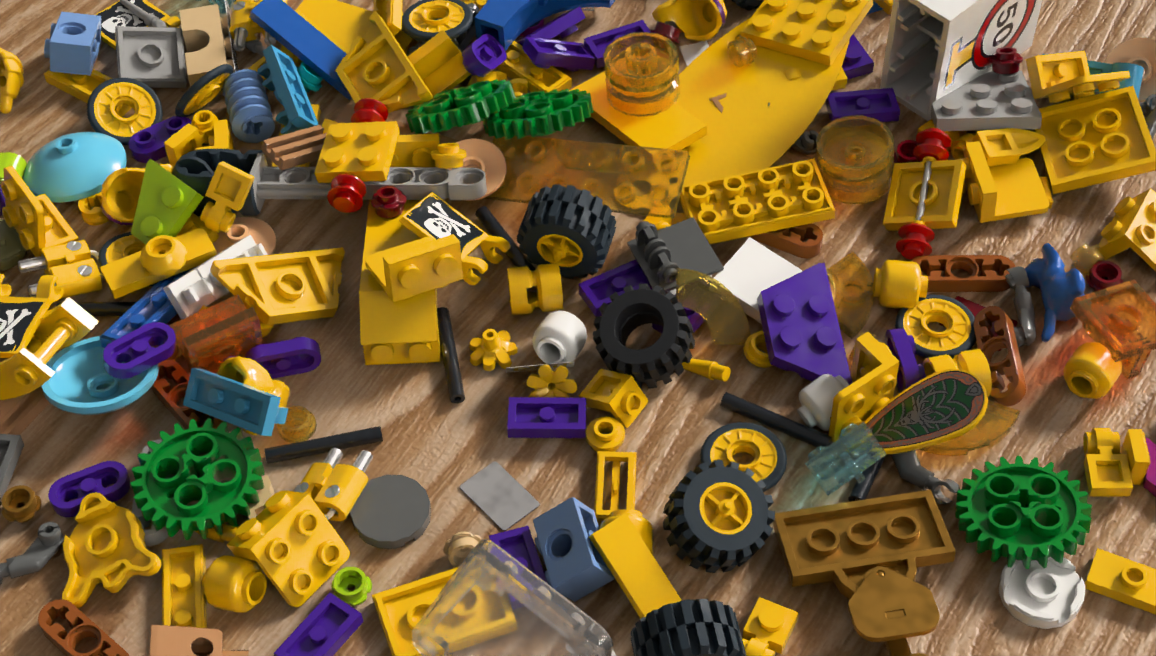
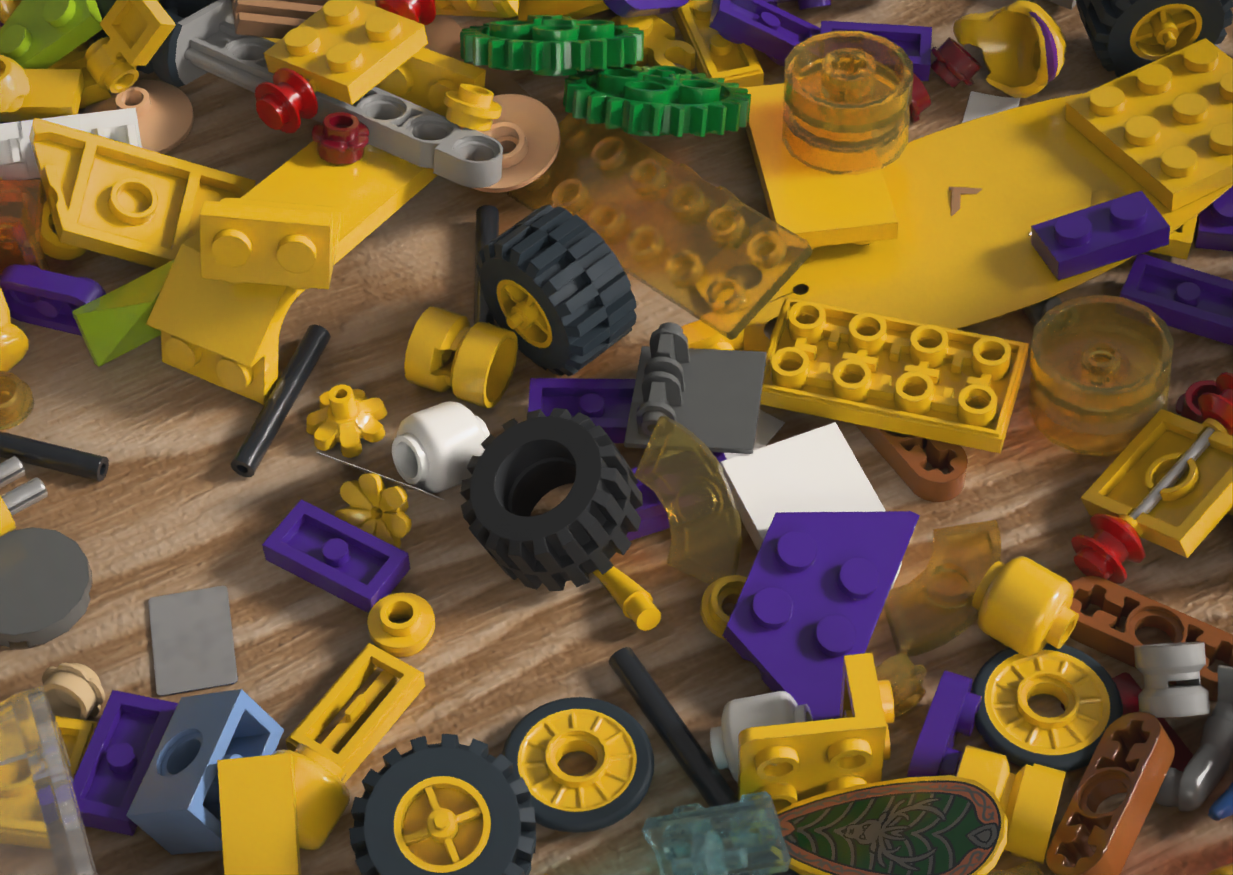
camera: 30 degrees right, 0 degrees up
(336, 344) = (119, 318): none -> lime slope
(438, 219) = (393, 222): flag -> none
(615, 394) = (457, 575): yellow bracket -> none
(742, 51) = (1046, 133): clear yellow plate -> none
(807, 91) = (1100, 235): none -> dark purple plate
(989, 286) = (1176, 663): none -> light grey wheel

